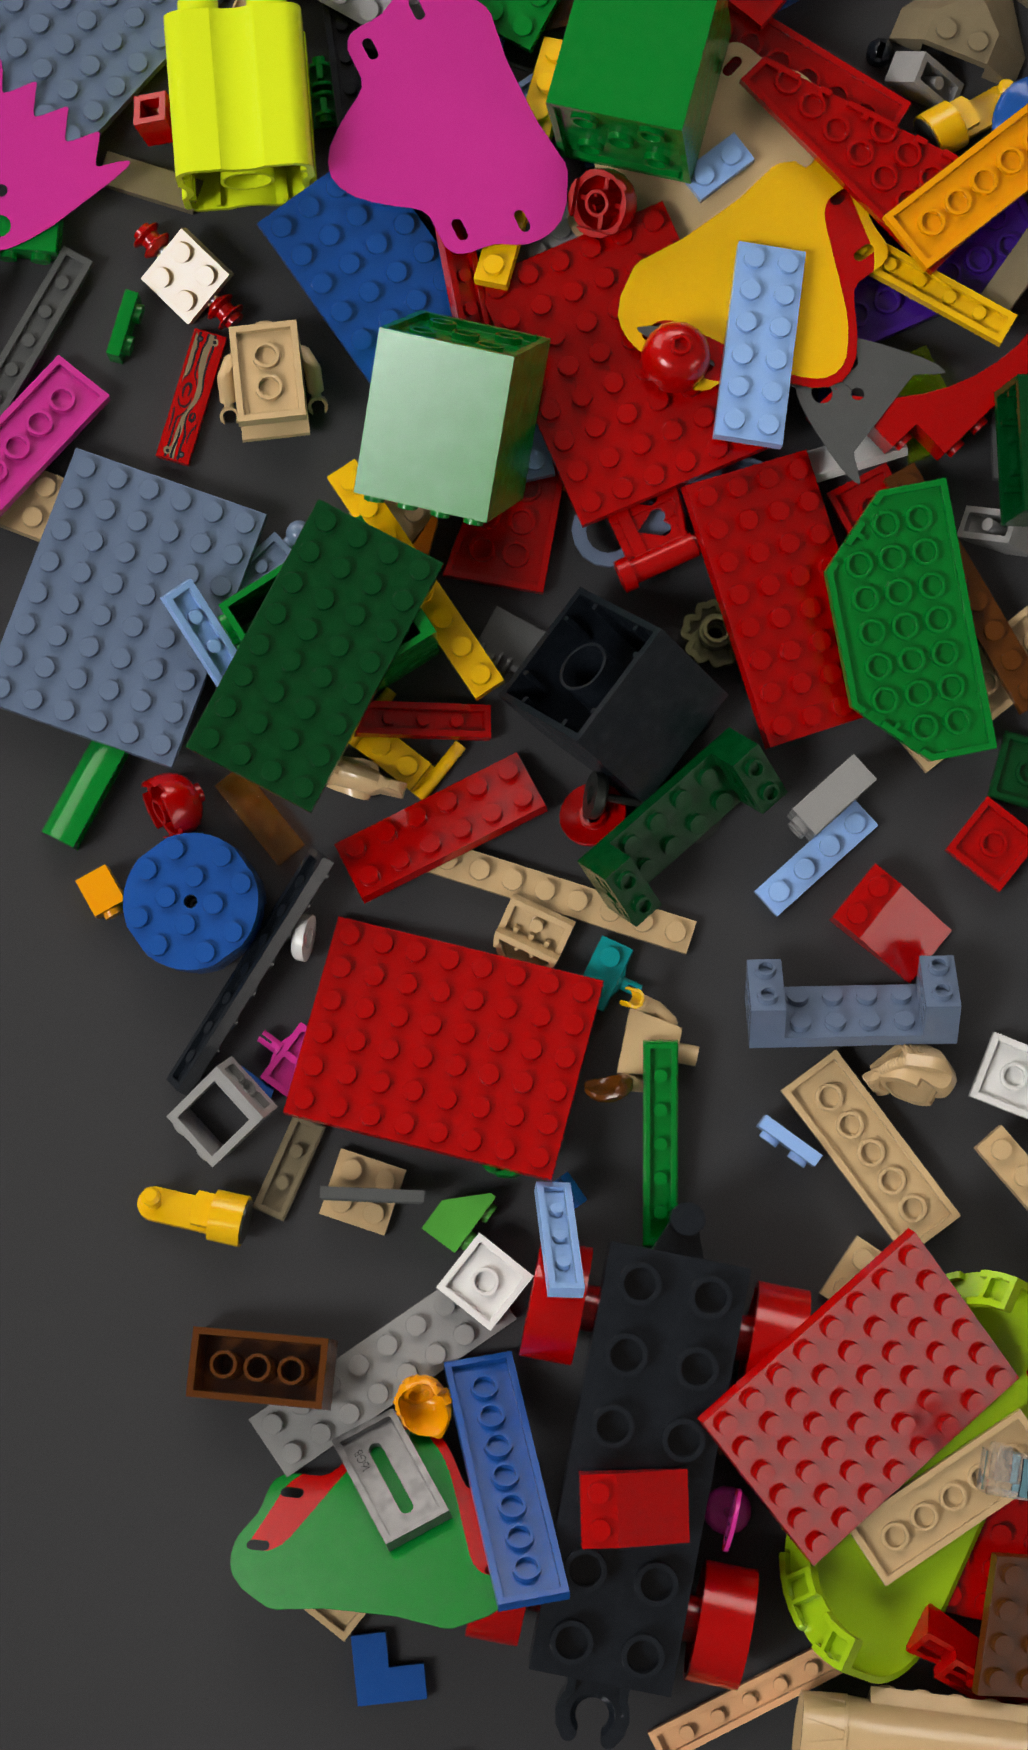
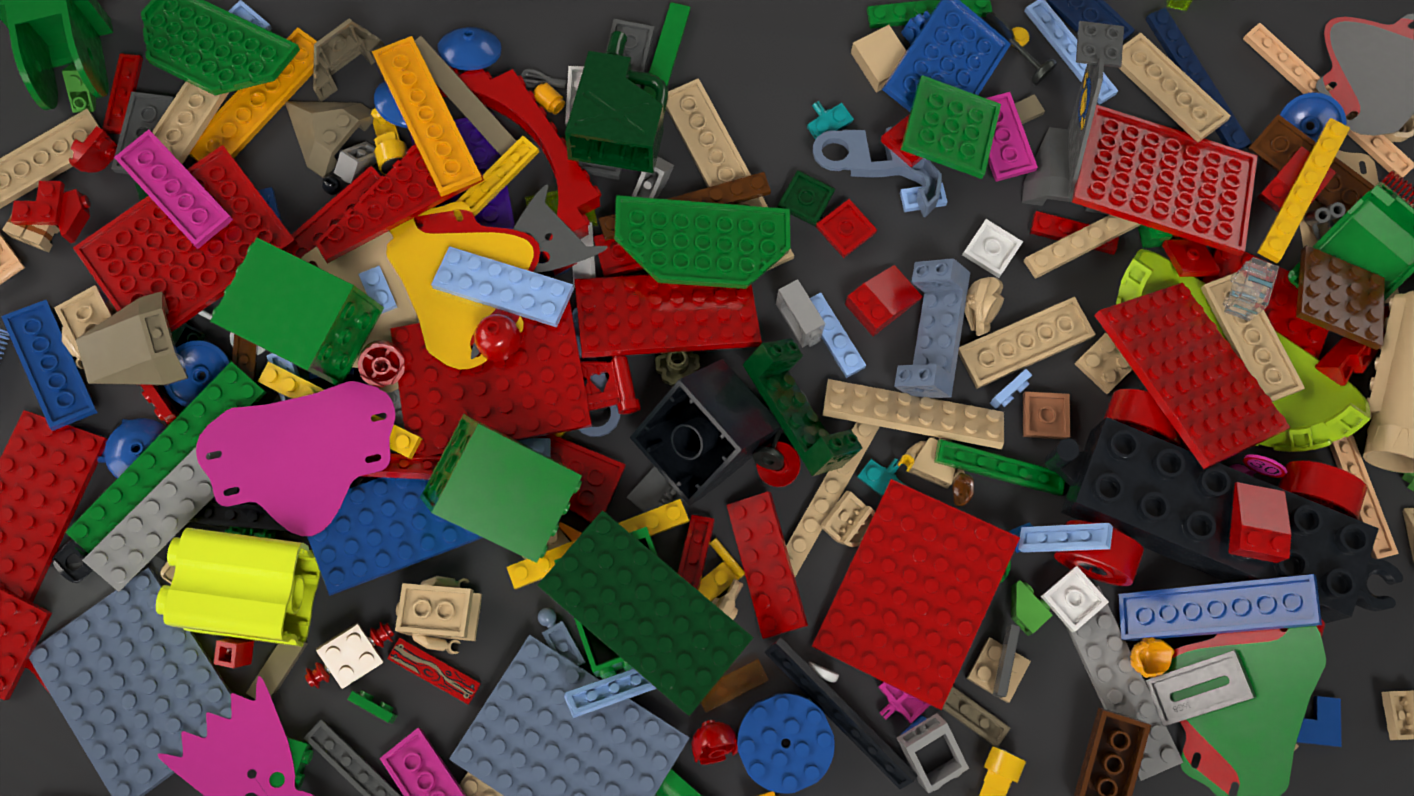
camera: 80 degrees left, 10 degrees down
(715, 1000) = (914, 414): none -> tan plate
(760, 1202) = (1046, 415): none -> nougat plate

